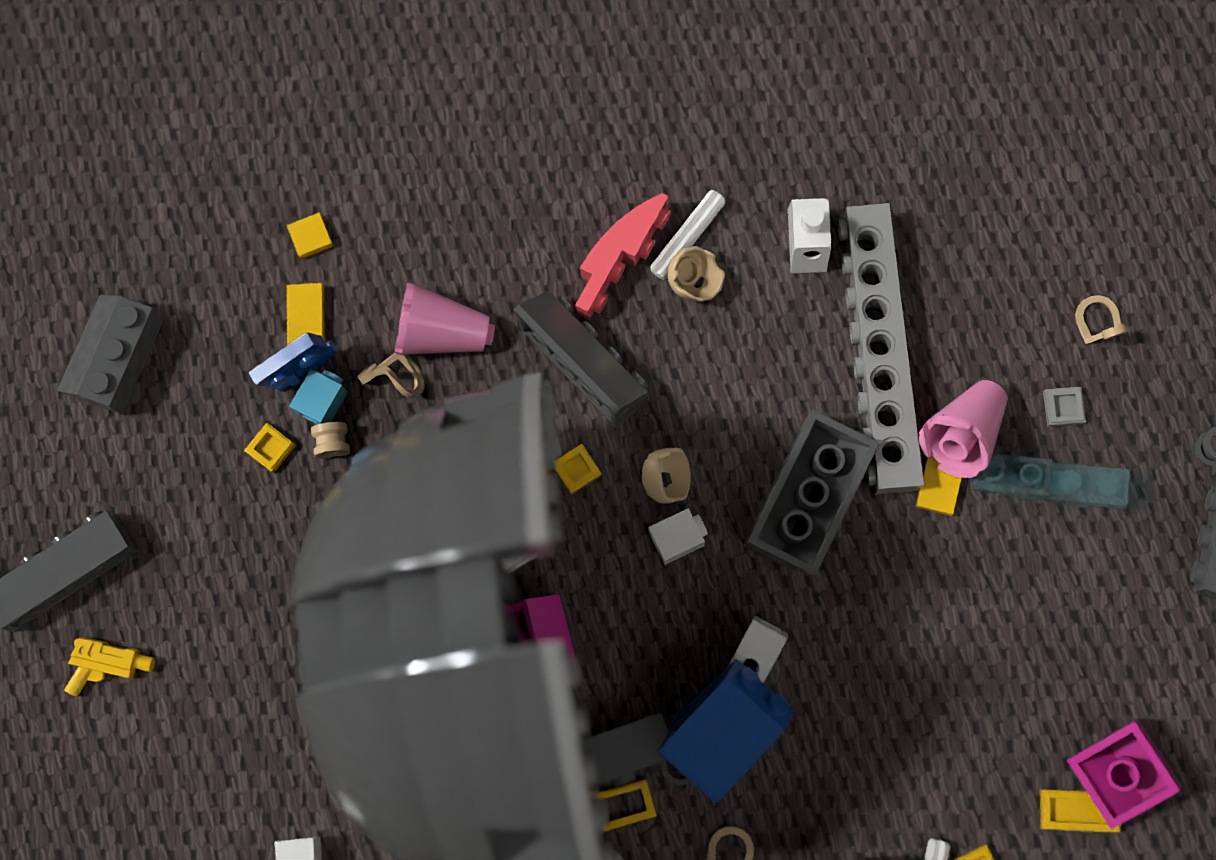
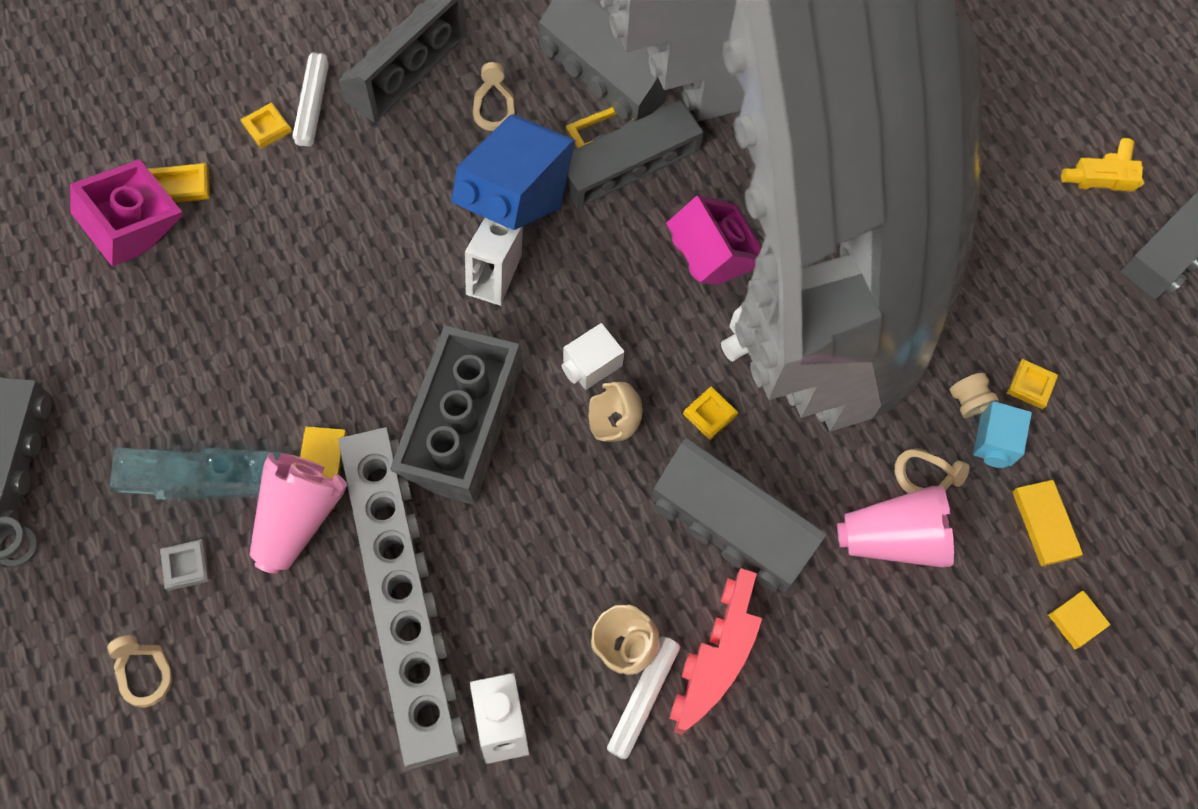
camera: 155 degrees right, 10 degrees down
(294, 362) = (1040, 456): blue plate -> none

